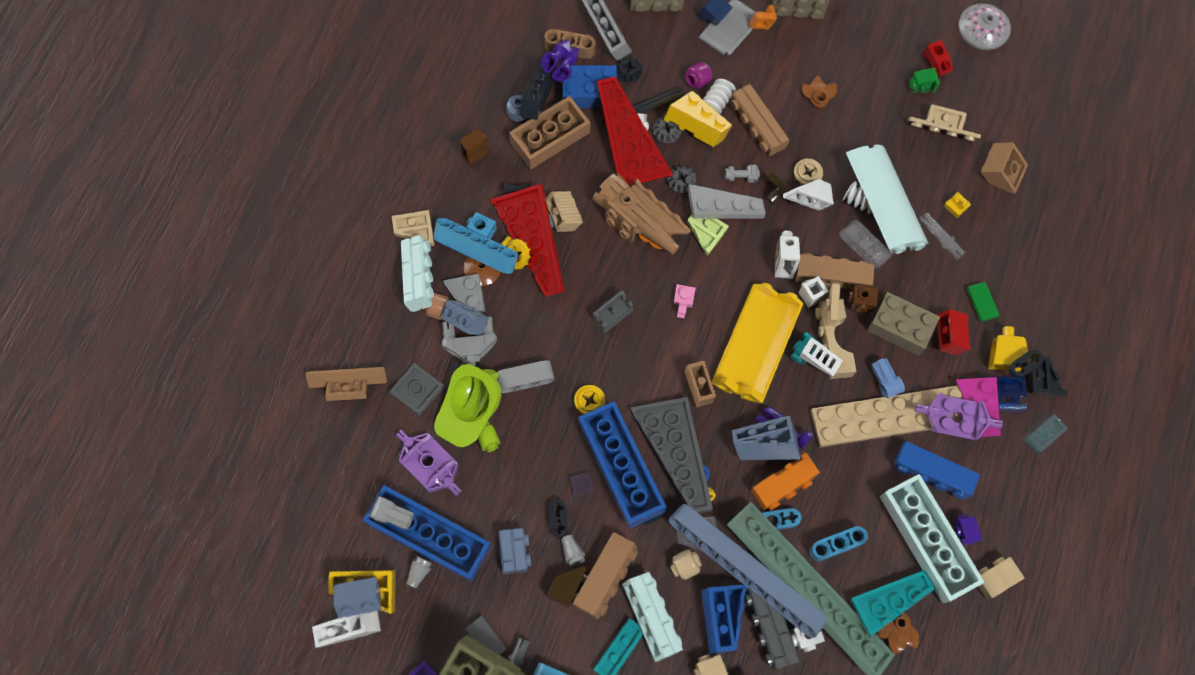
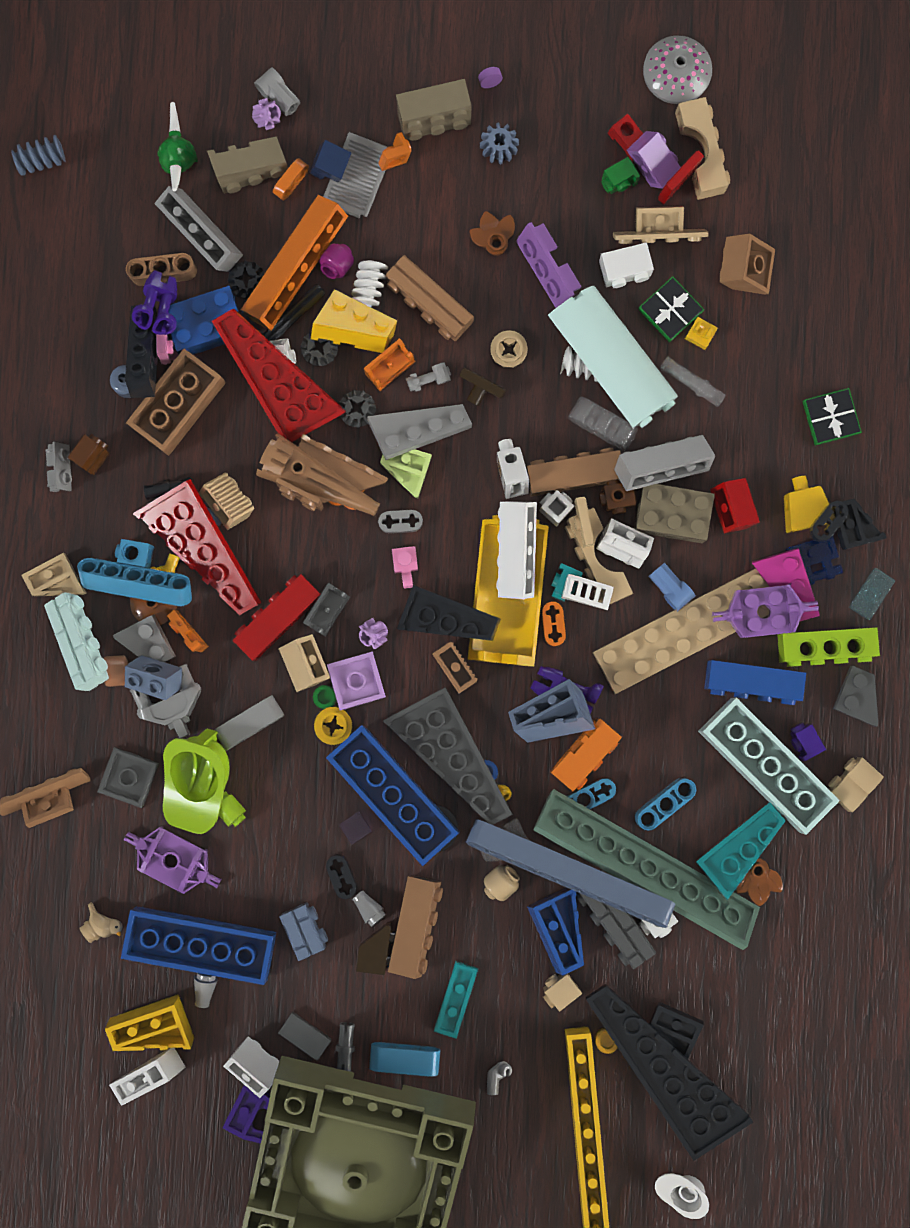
camera: 15 degrees left, 15 degrees up
(353, 494) = (99, 926): none -> tan animal
(357, 597) = (146, 1051): sand blue brick -> none
(388, 512) = (144, 943): light grey piece -> none
(434, 645) = (253, 1066): none -> white brick
(449, 146) = (60, 477): none -> light grey hinge
(504, 302) = (181, 625): none -> orange wing
(519, 245) = (184, 566): yellow gear -> none
(555, 93) = (165, 349): none -> bright pink plate
(572, 306) = (277, 617): none -> red brick
(583, 344) = (304, 663): none -> tan brick
(590, 376) = (324, 697): none -> green tile
(619, 371) = (356, 681): none -> lavender plate
(643, 339) = (373, 633): none -> lavender gear
(652, 616) = (481, 954): light aqua brick -> none
(668, 66) = (294, 262): none -> orange brick
(682, 13) = (291, 179): none -> orange beam
(689, 267) = (400, 527): none -> light grey beam
(699, 342) = (442, 616): none -> black wing
(715, 155) = (389, 365): none -> orange hinge
(775, 309) = (516, 549): none -> white brick
(790, 378) = (559, 622): none -> orange beam
(814, 195) = (522, 381): white slope -> none
(841, 34) = (497, 151): none -> sand blue gear
(848, 108) = (557, 281): none -> medium lavender brick
(859, 334) = (625, 543): none -> white brick
(906, 282) = (664, 462): none -> light grey brick
(913, 140) = (626, 265): none -> white brick
(938, 182) = (671, 309): none -> black tile
(953, 75) = (654, 158): none -> medium lavender brick
(969, 92) = (680, 177): none -> red tile
(982, 302) = (761, 451): green tile -> none
(990, 61) = (695, 121): none -> tan arch
(1017, 511) = (858, 696): none -> dark grey wing
(1033, 464) = (866, 646): none -> lime brick
(1044, 293) = (832, 416): none -> black tile

